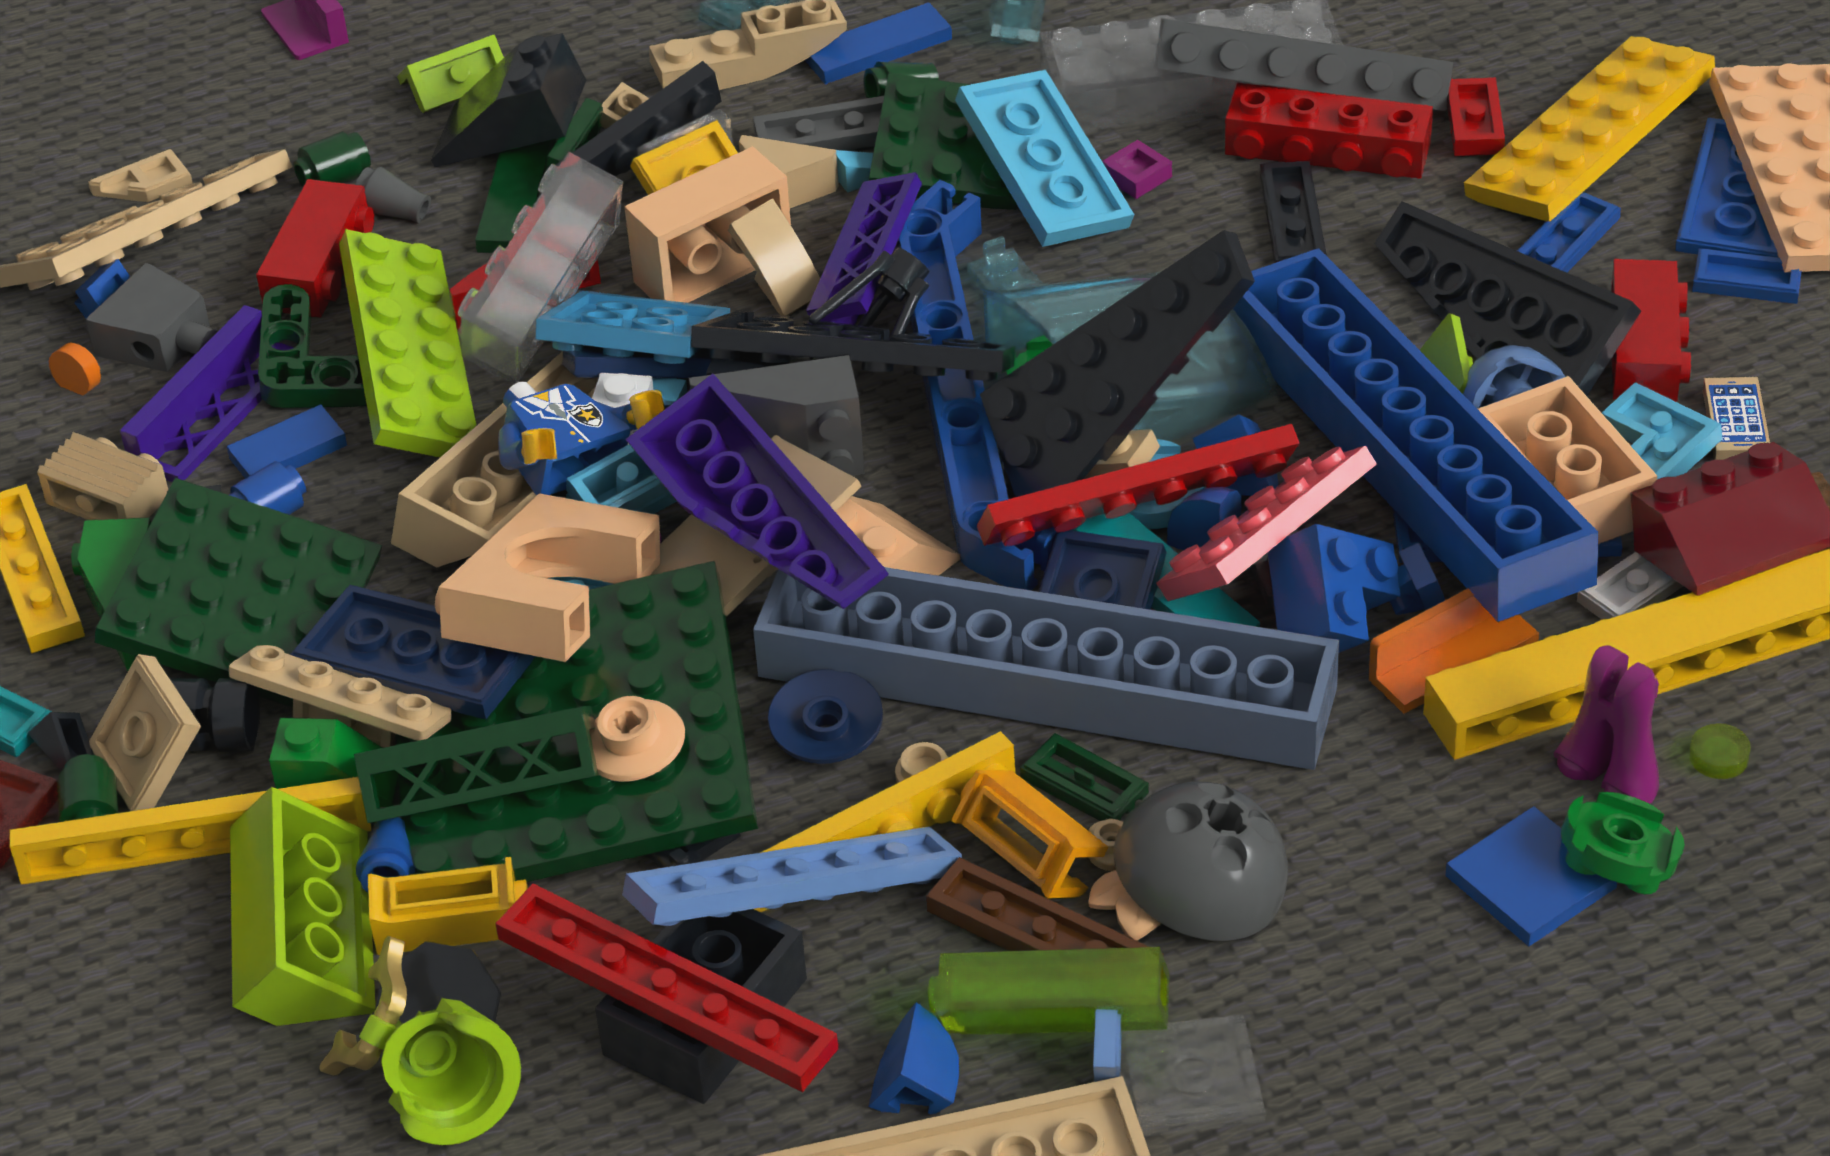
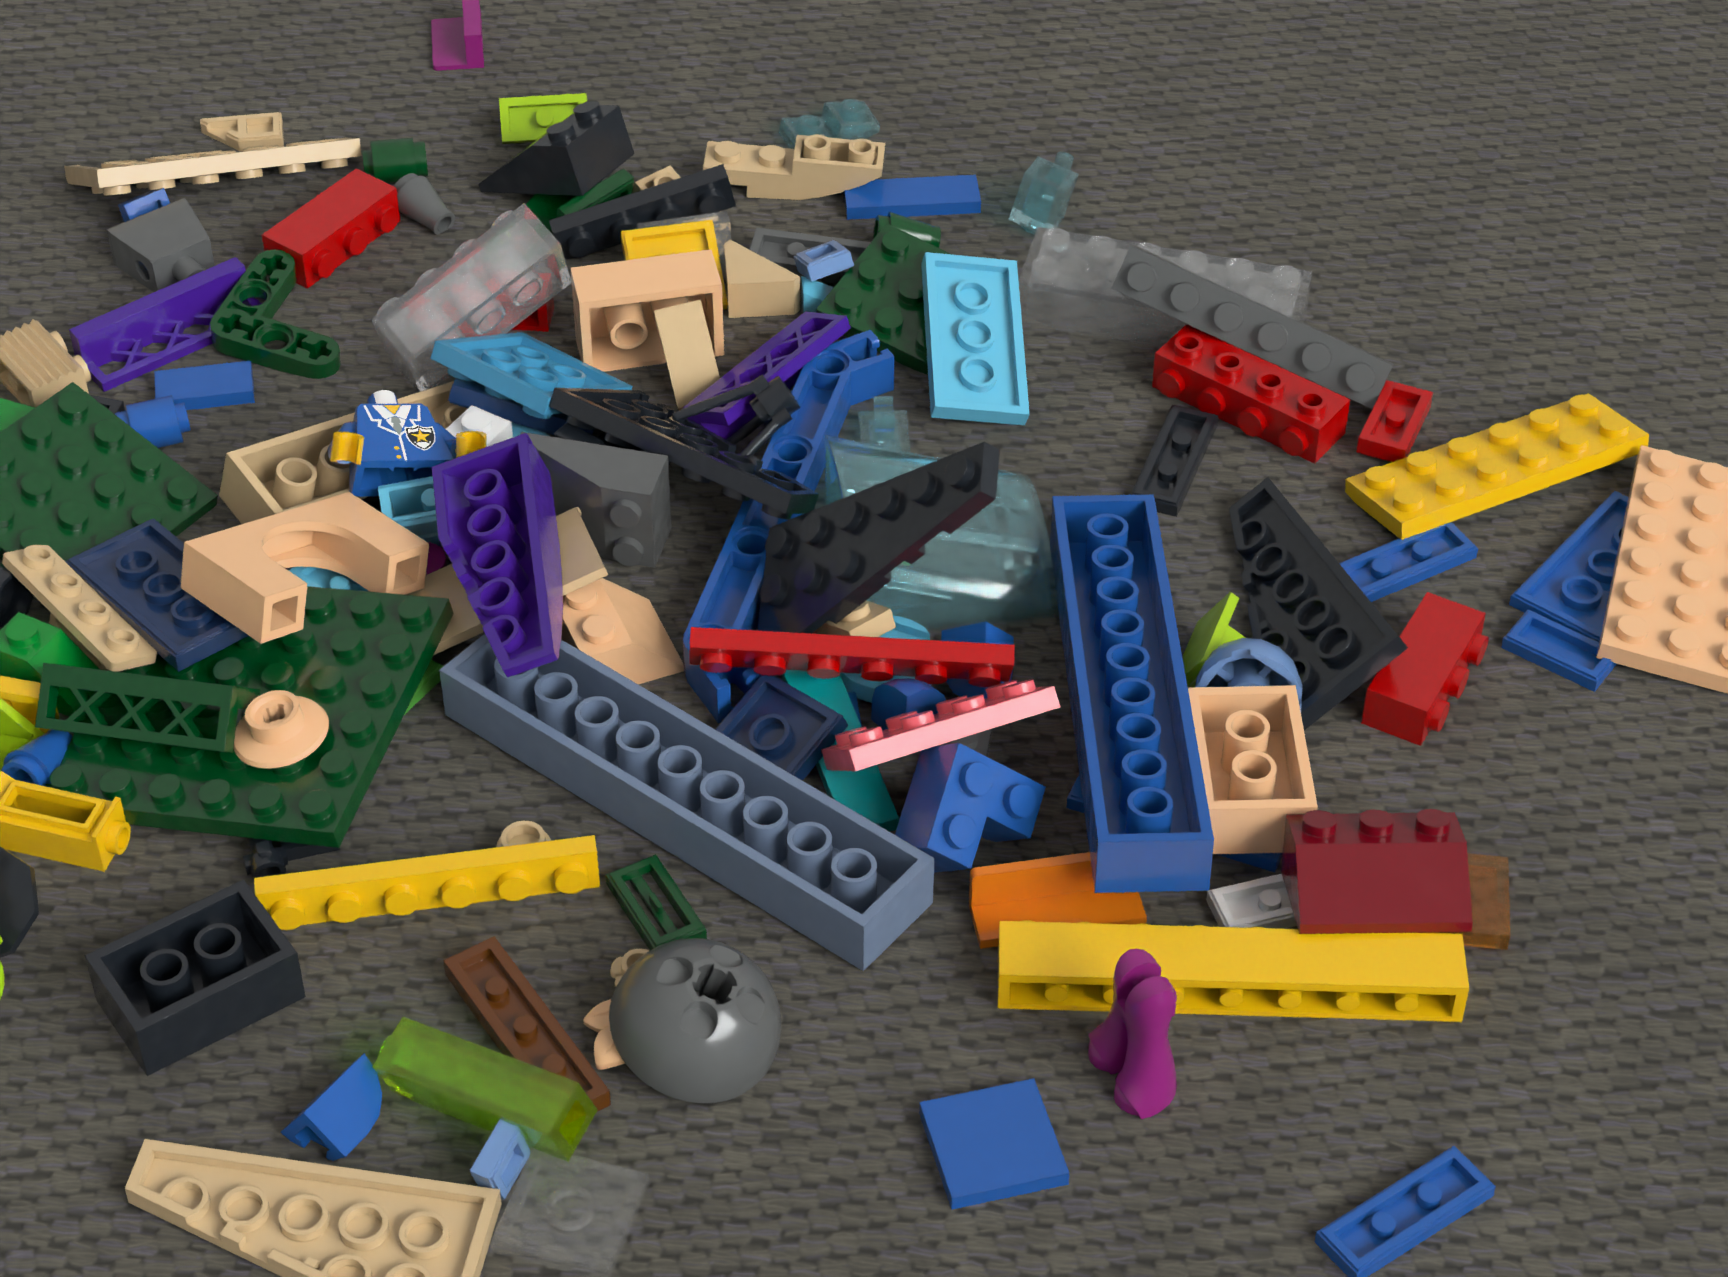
camera: 20 degrees right, 0 degrees up
(75, 368) = (82, 268): orange tile -> none
(406, 344) = (335, 348): lime plate -> none
(668, 987) = (145, 961): red plate -> none
(788, 875) = (320, 898): medium blue plate -> none
(820, 700) = (463, 754): dark blue dish -> none
(847, 128) = (823, 260): none -> medium blue tile
(1065, 837) = (565, 934): light orange window -> none
(1138, 169) = (1059, 375): magenta plate -> none
(1416, 583) = (1060, 829): blue tile -> none
(1621, 841) = (1082, 1167): green plate -> none
(1662, 430) = (1379, 772): medium azure plate -> none
(1720, 751) = (1245, 1090): clear neon green tile -> none
(1739, 409) = (1464, 778): tile -> none

